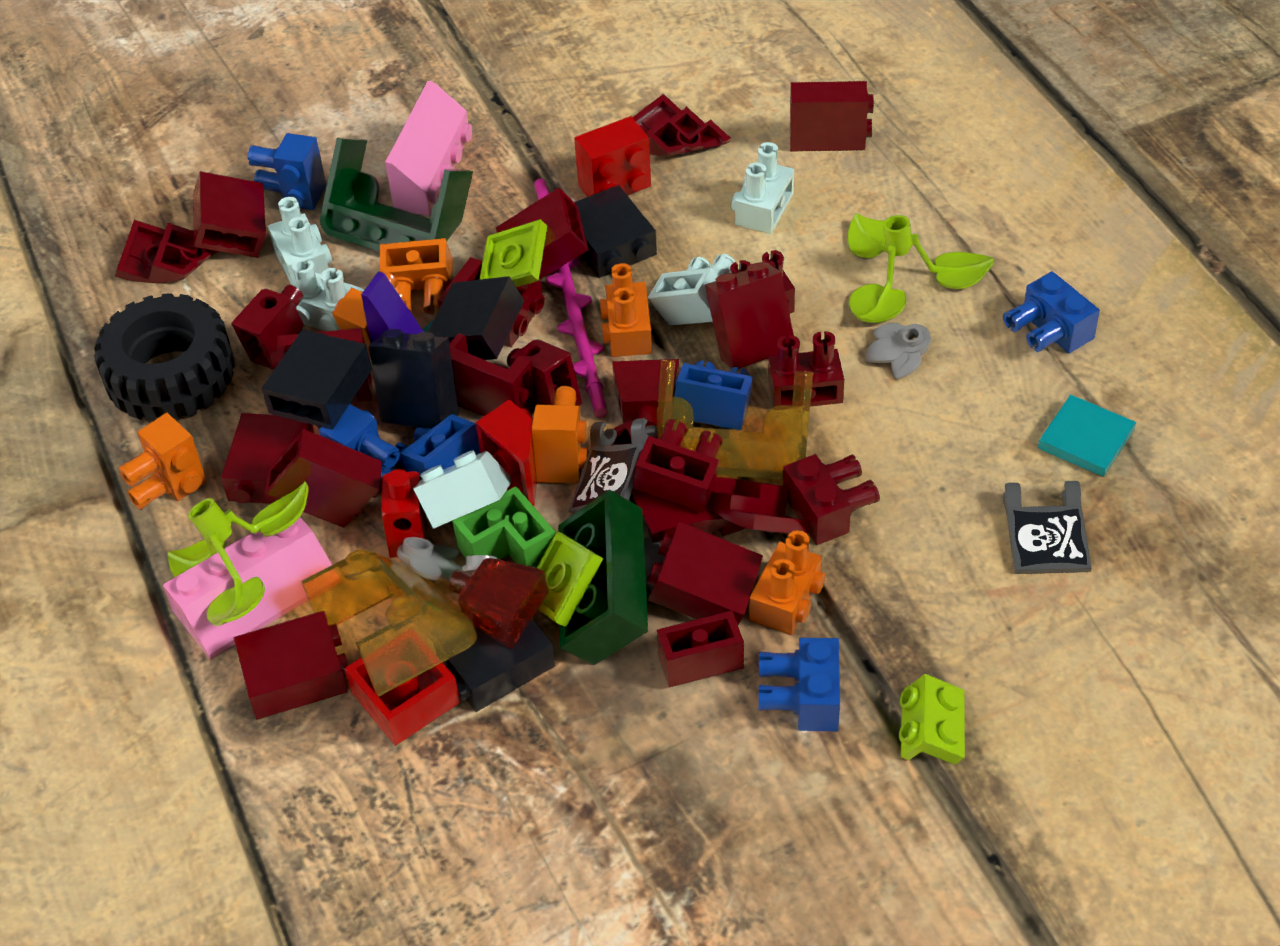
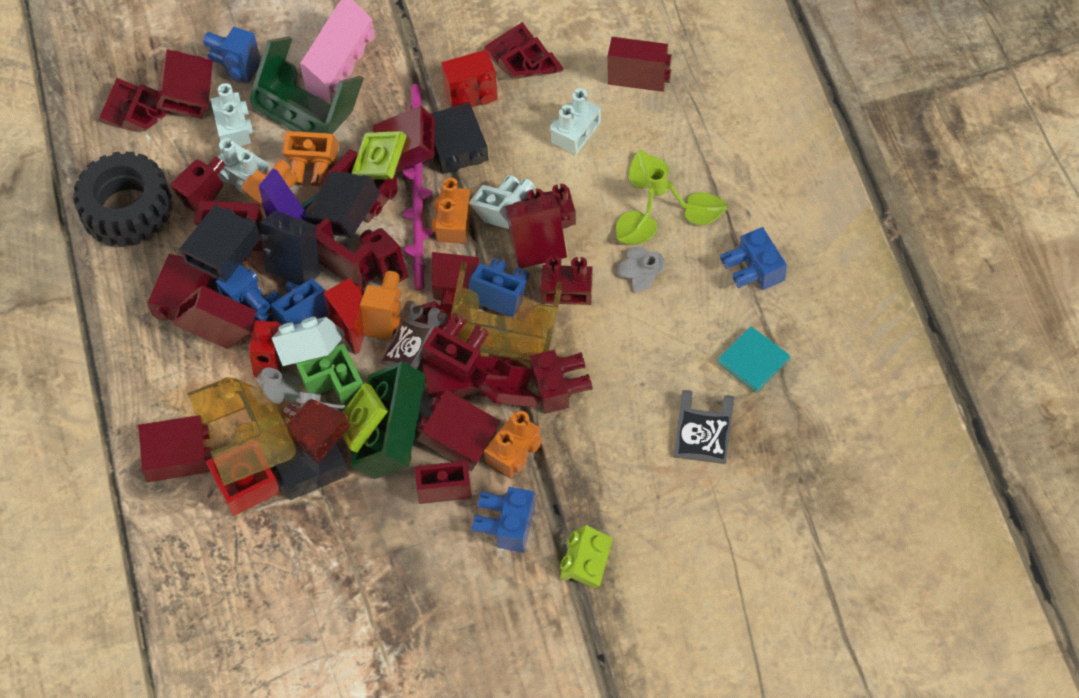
camera: 10 degrees right, 10 degrees up
(169, 457) = (112, 285): orange brick -> none
(216, 528) = (122, 360): lime plant -> none
(277, 560) = (155, 384): bright pink slope -> none

